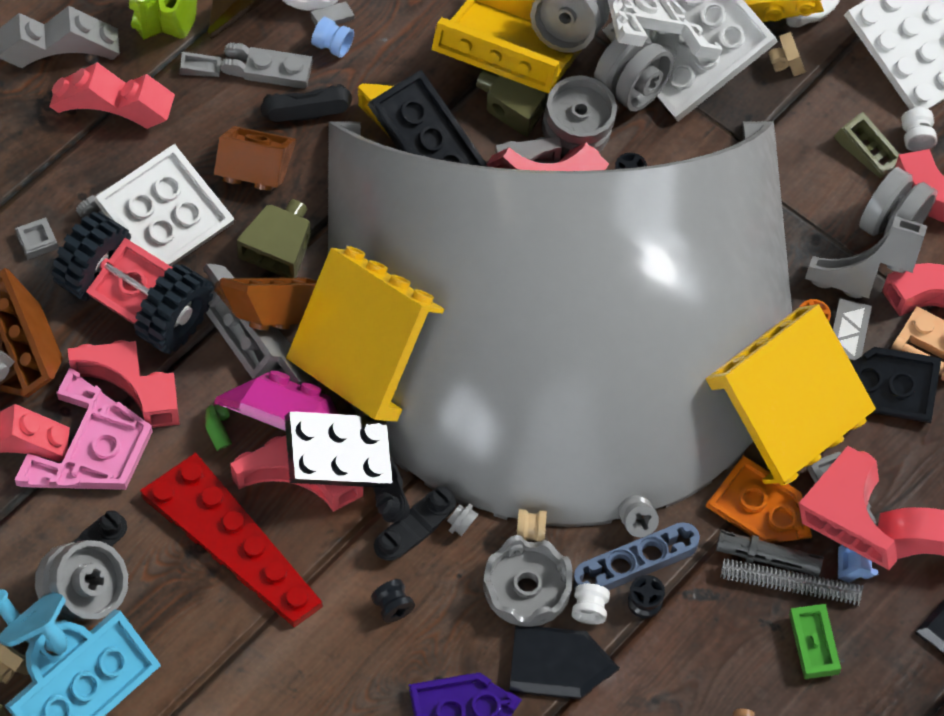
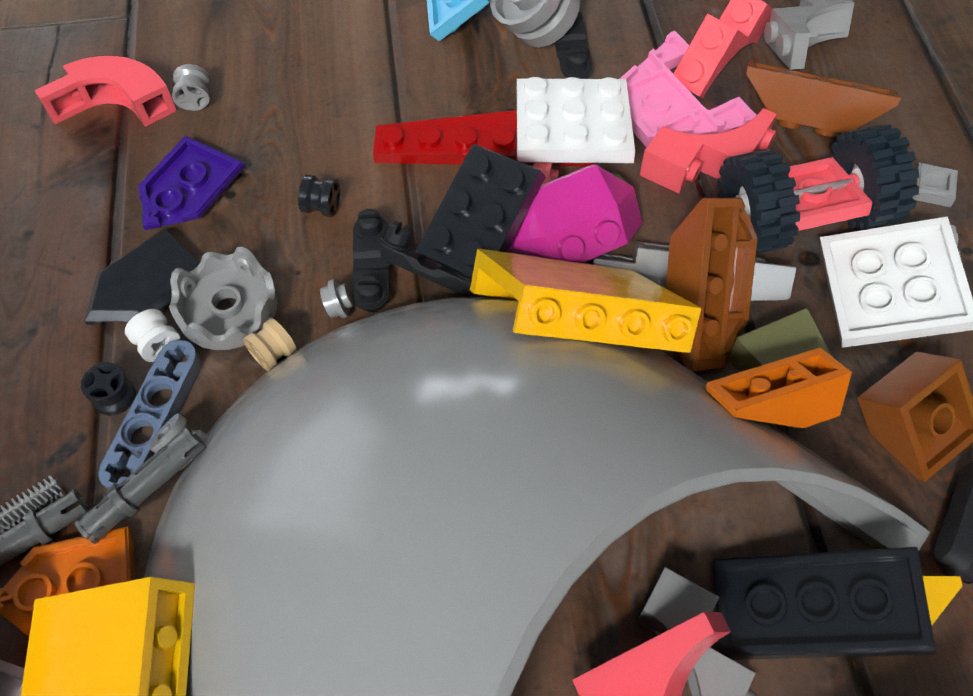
camera: 135 degrees right, 0 degrees up
(187, 471) = (574, 121): none -> white plate
(330, 202) = (787, 391): none -> orange slope
(719, 508) = (150, 476): none -> dark grey pin

